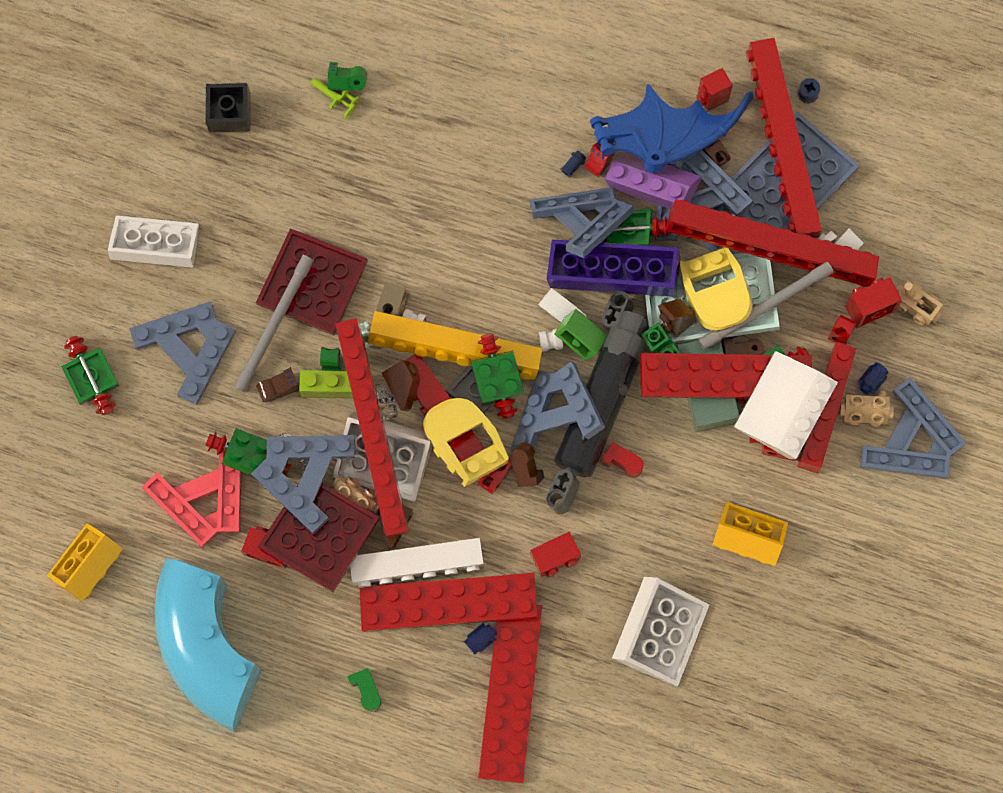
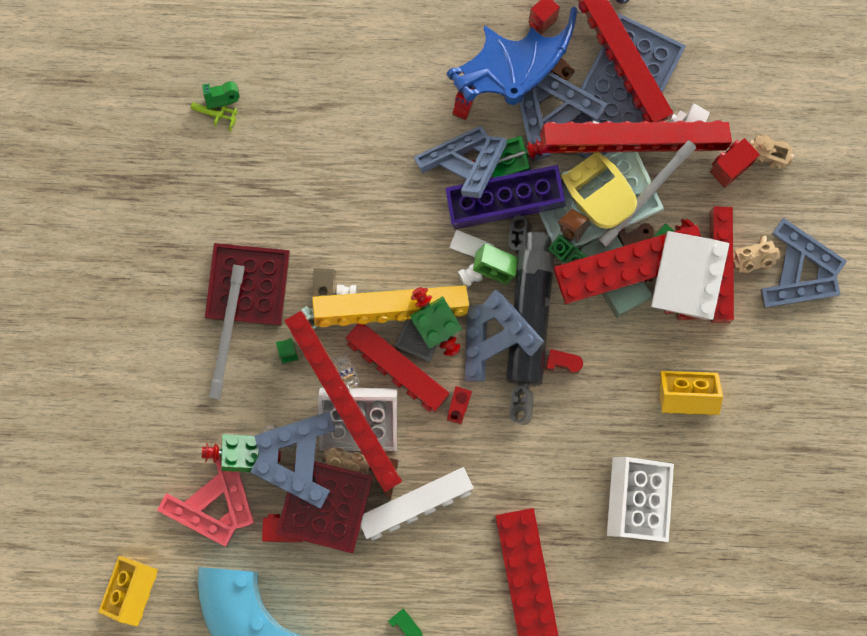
camera: 20 degrees left, 5 degrees up
(90, 375) = (79, 425): green plate -> none
(153, 241) = (97, 289): white slope -> none
(197, 369) = (172, 391): sand blue plate -> none
(228, 107) = (125, 151): black brick -> none
(278, 386) = (247, 385): reddish brown leg -> none
(324, 384) = (288, 372): lime brick -> none
(403, 383) = (356, 352): reddish brown slope -> none
(448, 602) = (453, 530): red plate -> none
(453, 419) = (409, 372): light yellow slope -> none
(481, 638) = (490, 552): clear blue brick -> none
(525, 466) = (482, 392): reddish brown leg -> none
(555, 554) = (531, 460): red brick -> none
(573, 163) = (441, 114): dark blue pin -> none
(660, 188) = (529, 114): medium lavender slope -> none
(842, 330) = (714, 194): red leg -> none
(872, 378) = (752, 228): clear blue brick -> none

